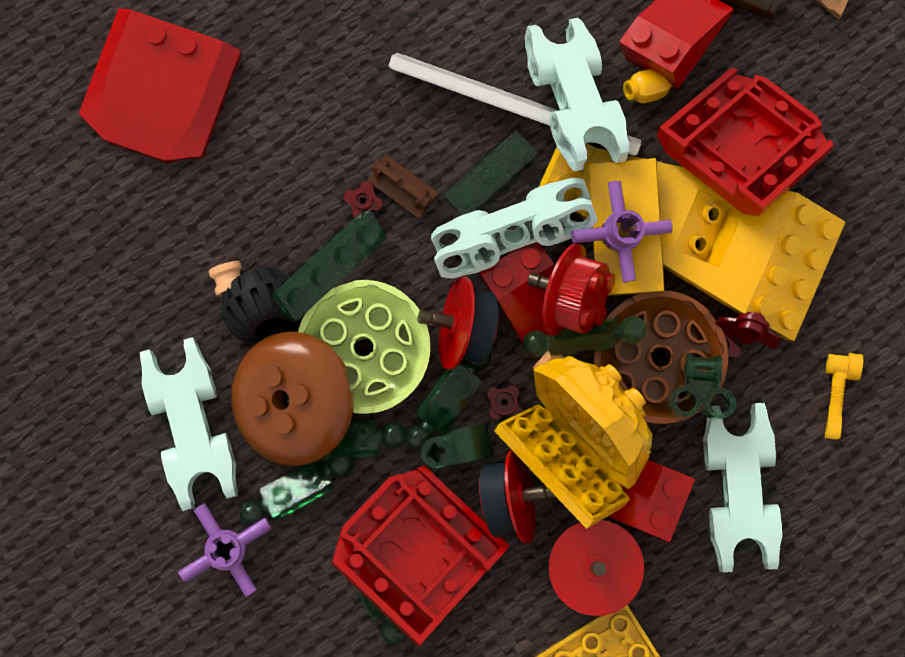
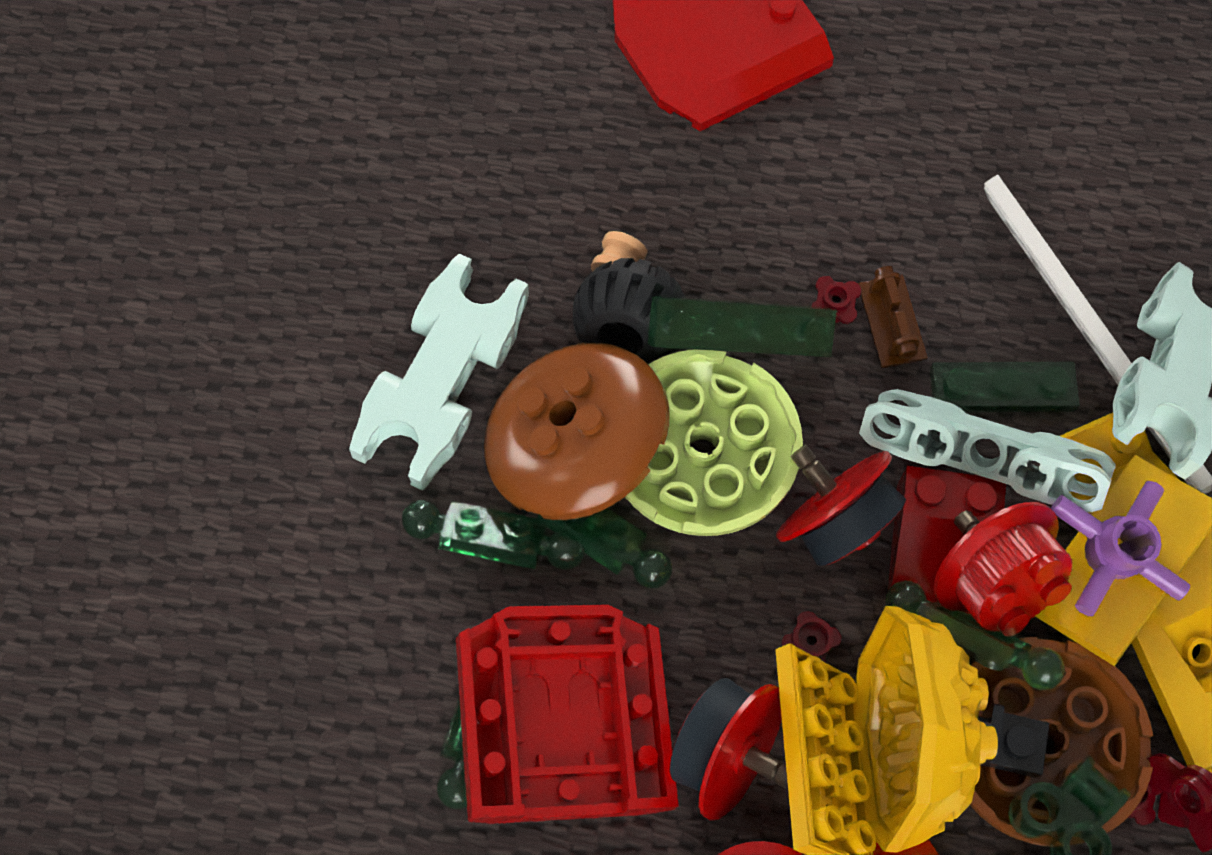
camera: 40 degrees right, 15 degrees down
(237, 554) = (366, 542): medium lavender bar -> none
(445, 402) = (746, 581): clear green plate -> none
(460, 447) = (723, 640): clear green piece -> none
(645, 375) = (1020, 742): none -> black bracket

